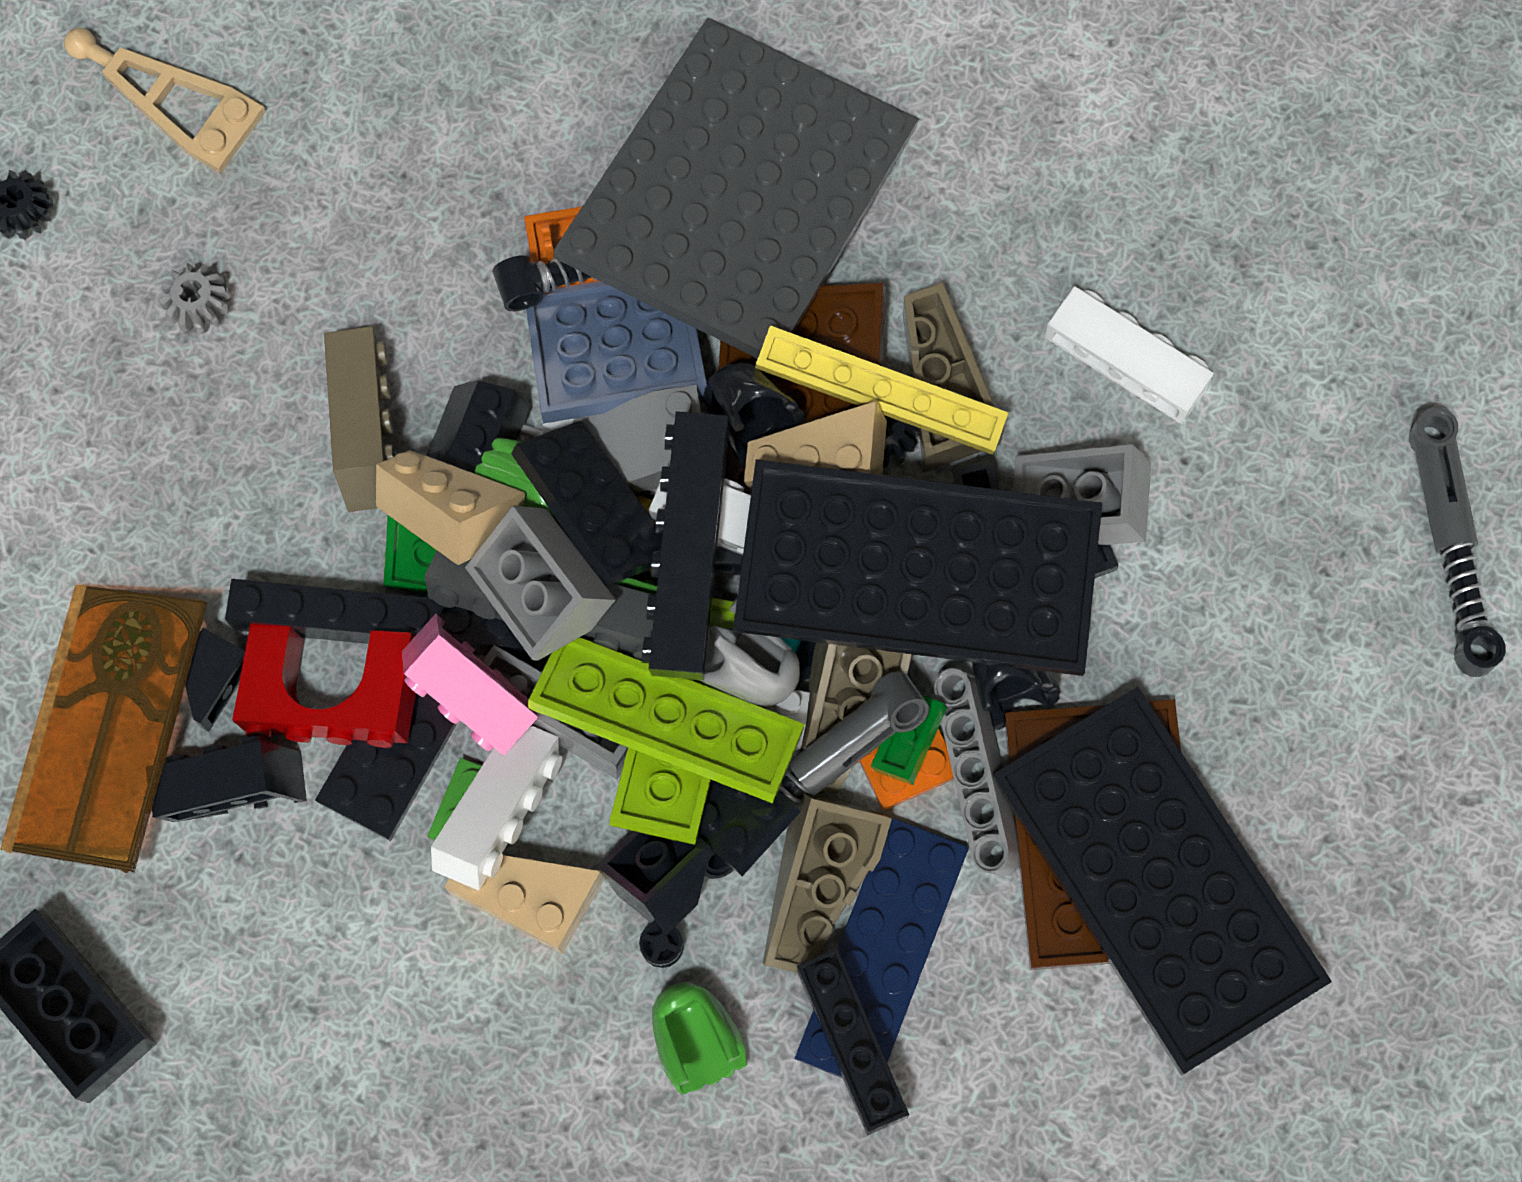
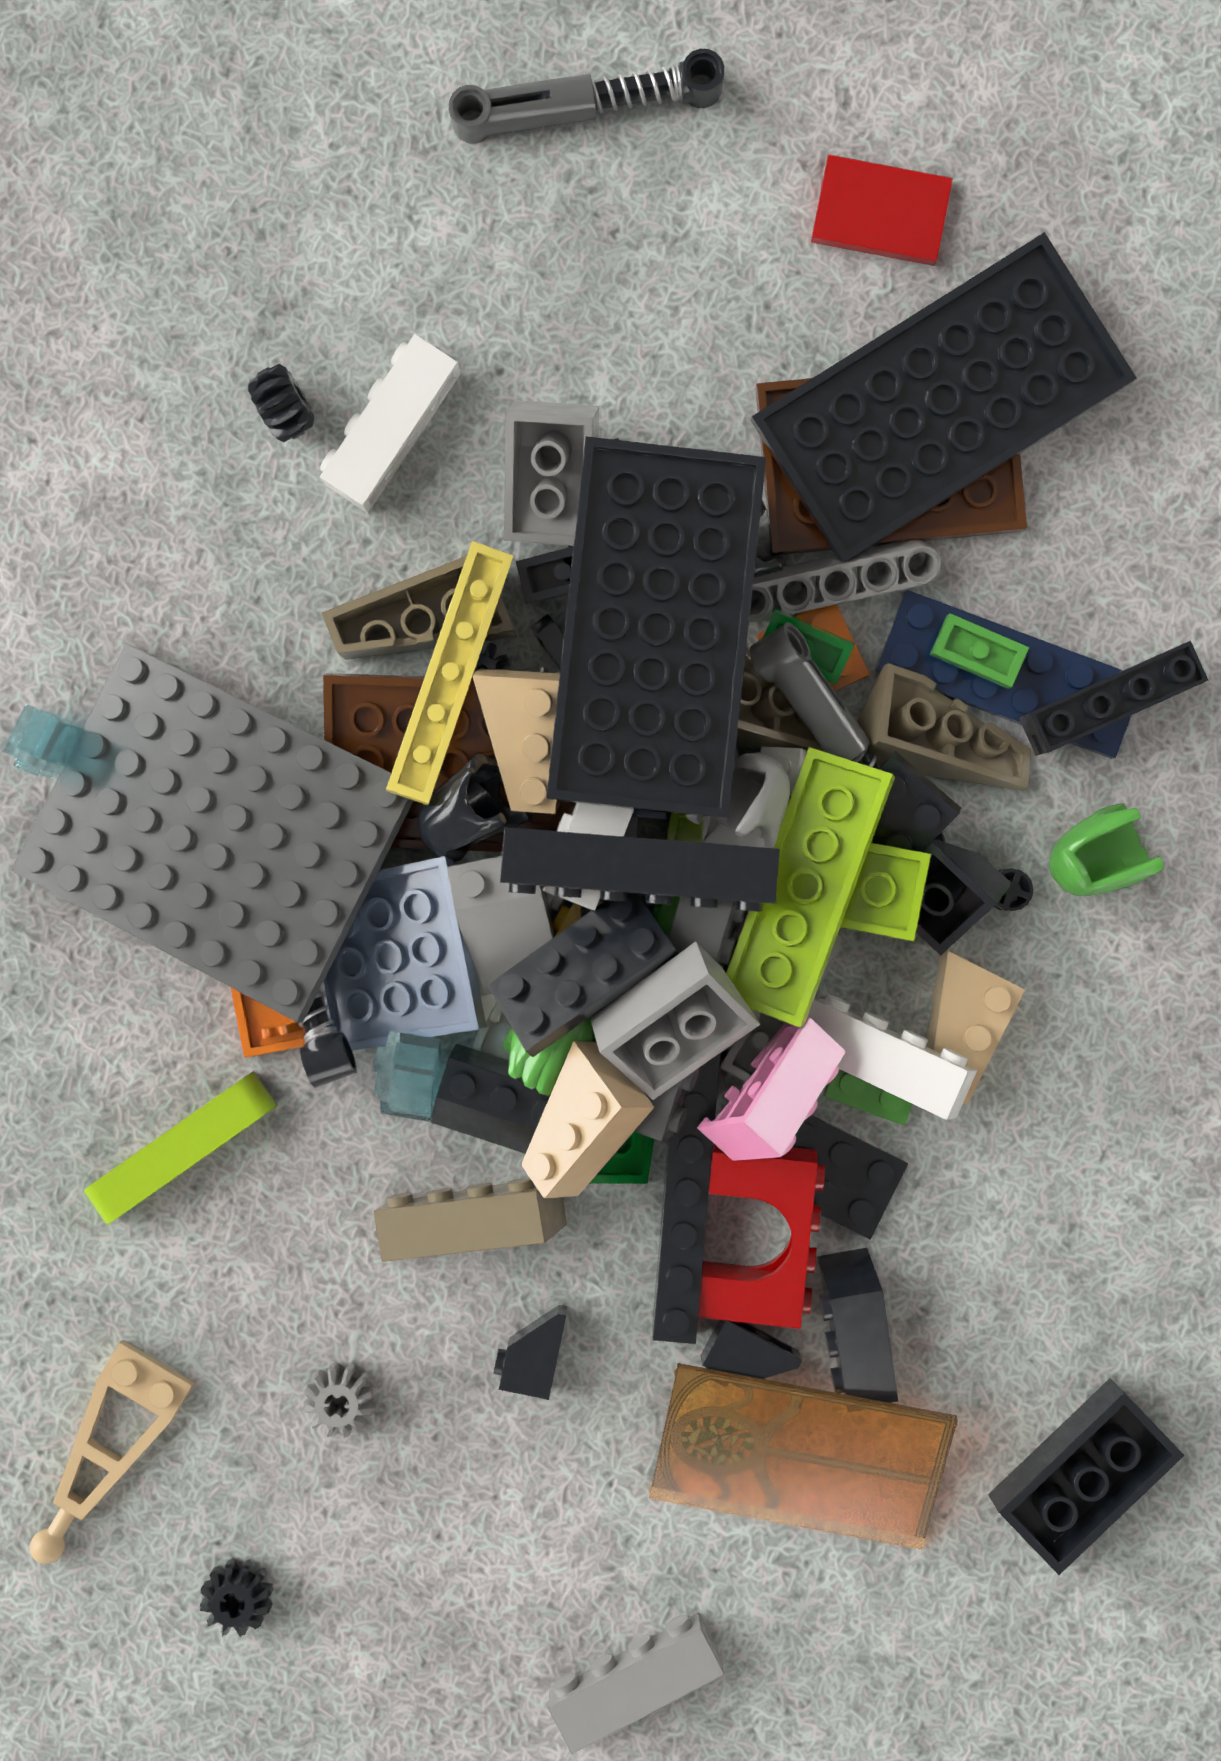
camera: 95 degrees left, 15 degrees up
(220, 474) = (532, 1356): none -> black slope
(443, 160) = (180, 1148): none -> lime beam
(500, 356) = (408, 1075): none -> clear light blue brick
(825, 42) = (43, 741): none -> clear light blue brick
(903, 910) = (979, 651): none -> bright green plate
(1145, 254) = (281, 403): none -> black gear
(1356, 831) = (881, 210): none -> red tile

